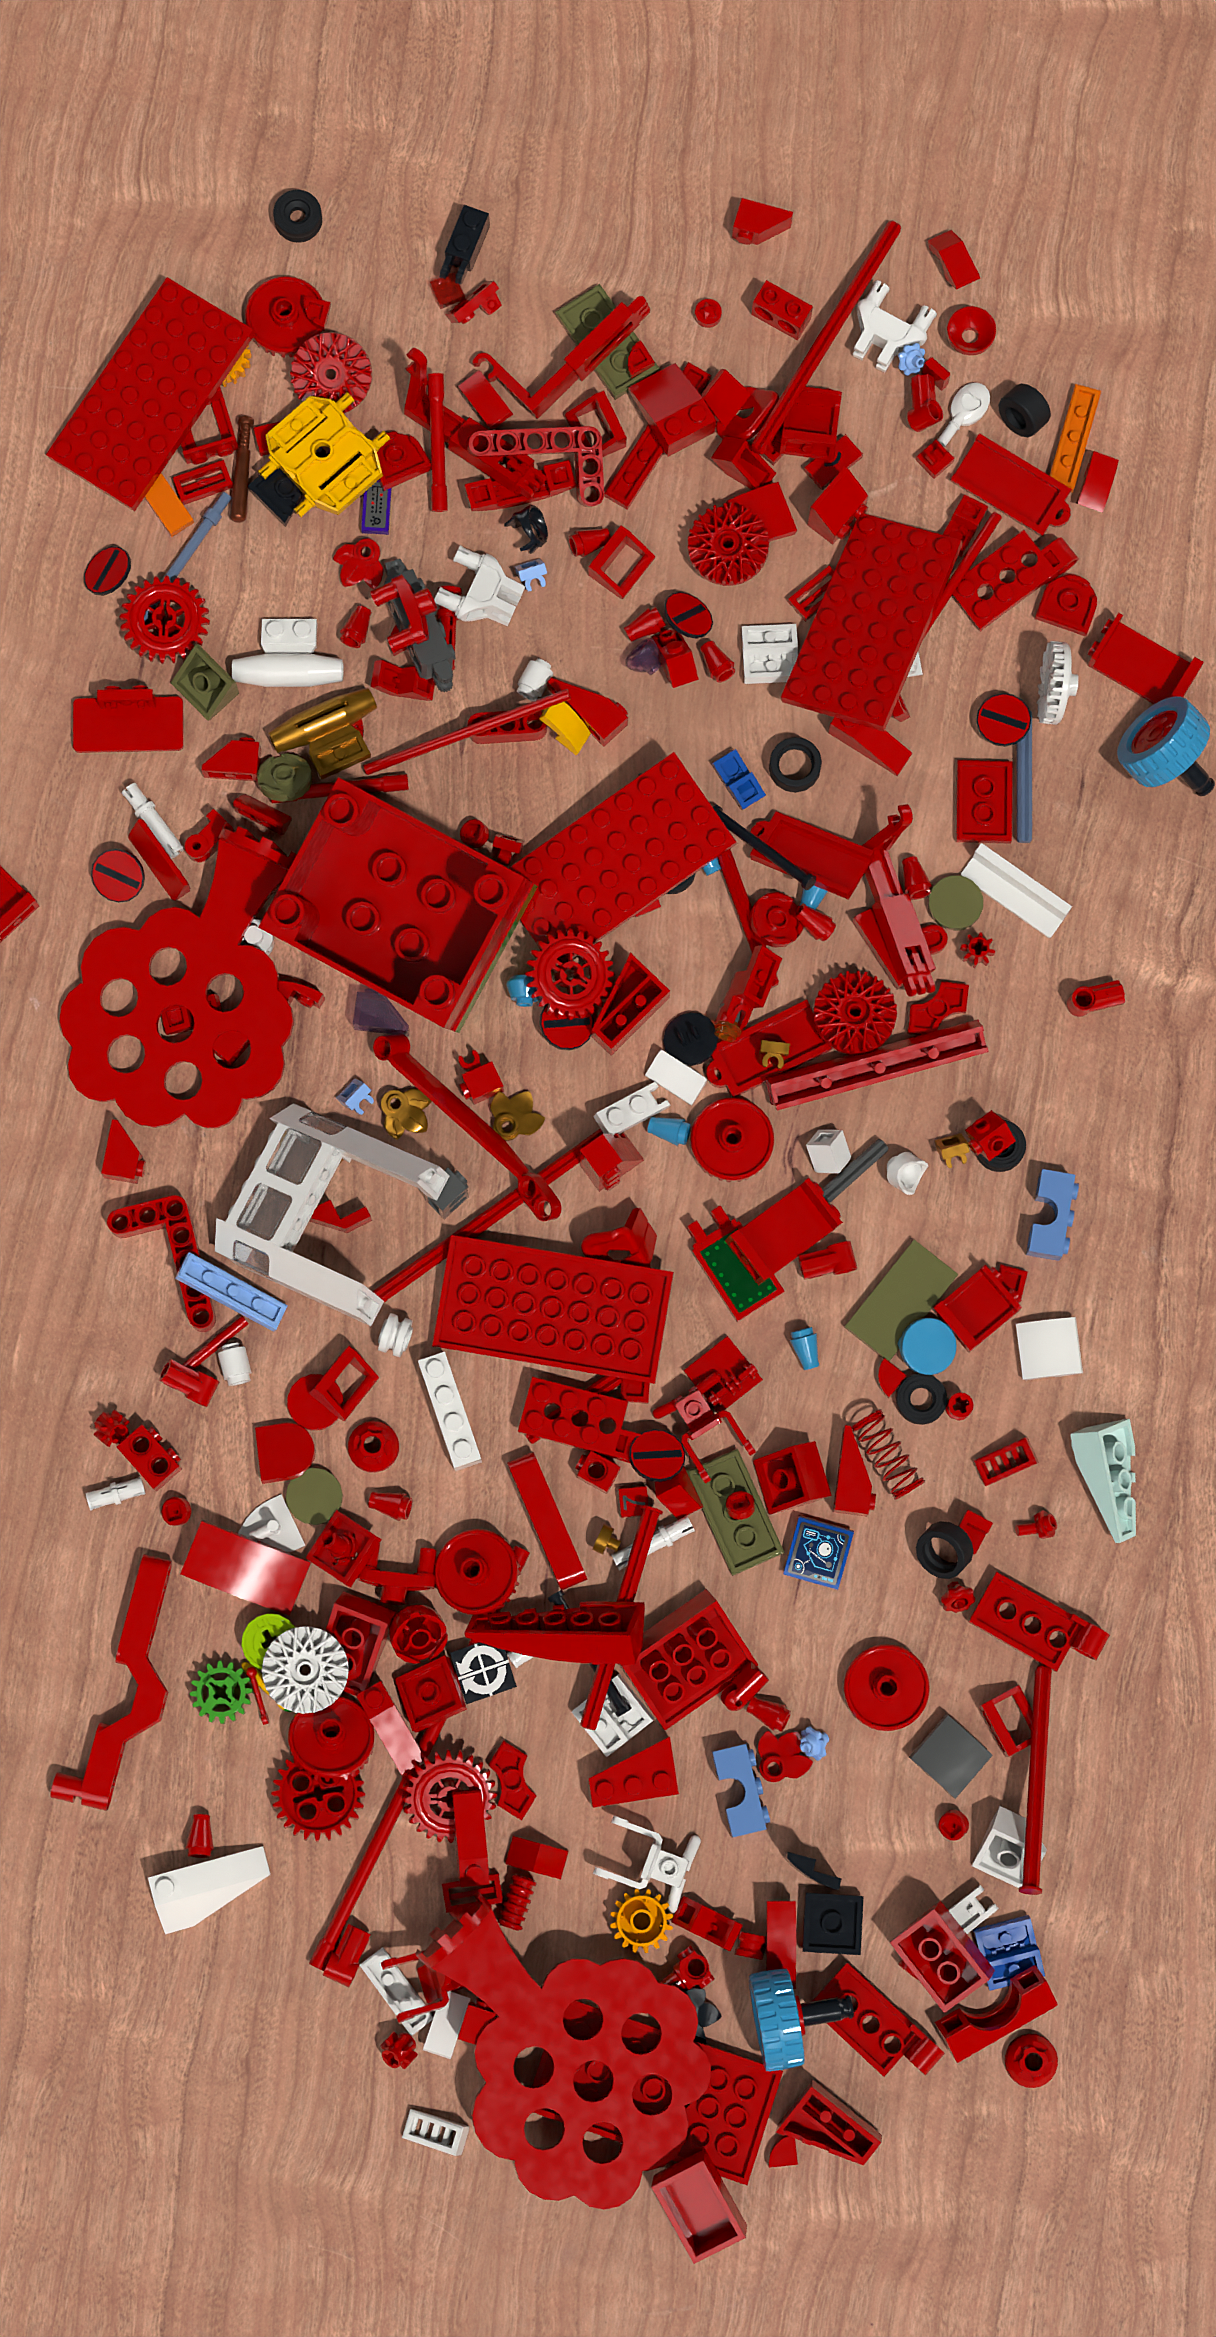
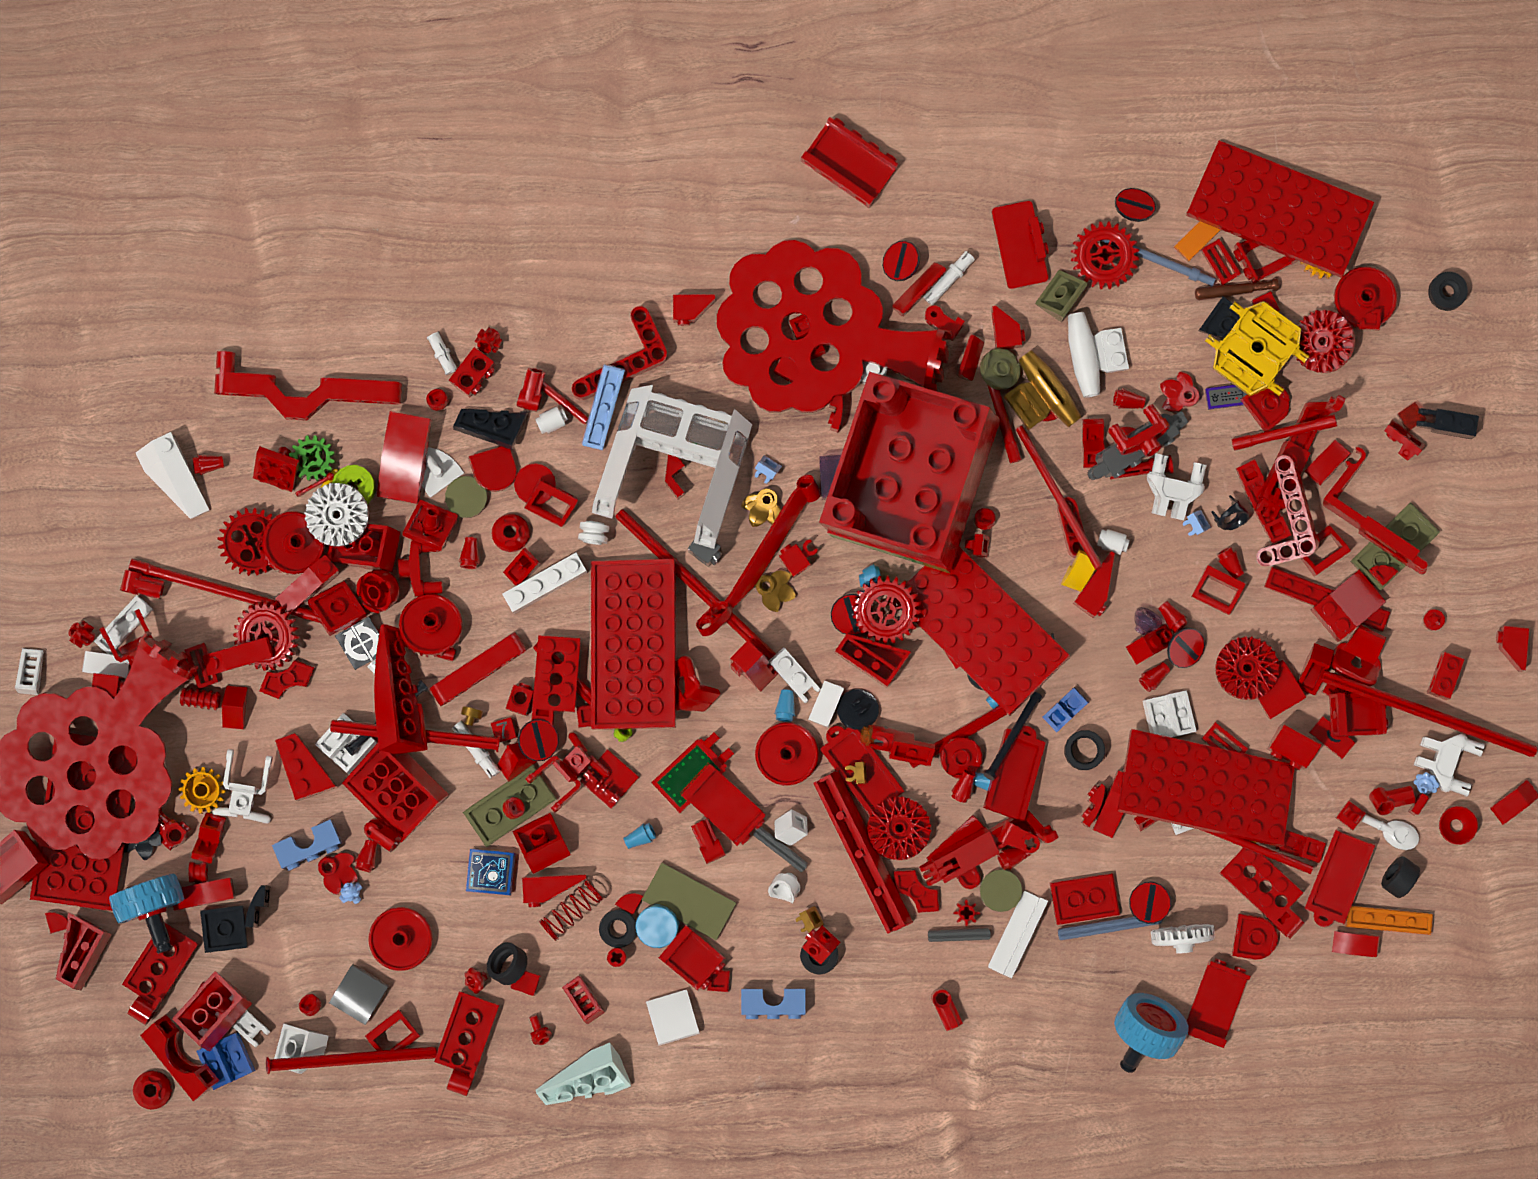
camera: 80 degrees right, 5 degrees up
(225, 1742) = (276, 468): none -> red plate
(227, 1444) = (495, 427): none -> black wing
(422, 1438) = (521, 567): none -> red slope
(669, 1350) = (622, 737): none -> lime hinge
(860, 761) = (1096, 797): none -> red slope
(894, 864) = (1016, 836): none -> red piece
(1003, 965) = (959, 935): none -> dark grey axle

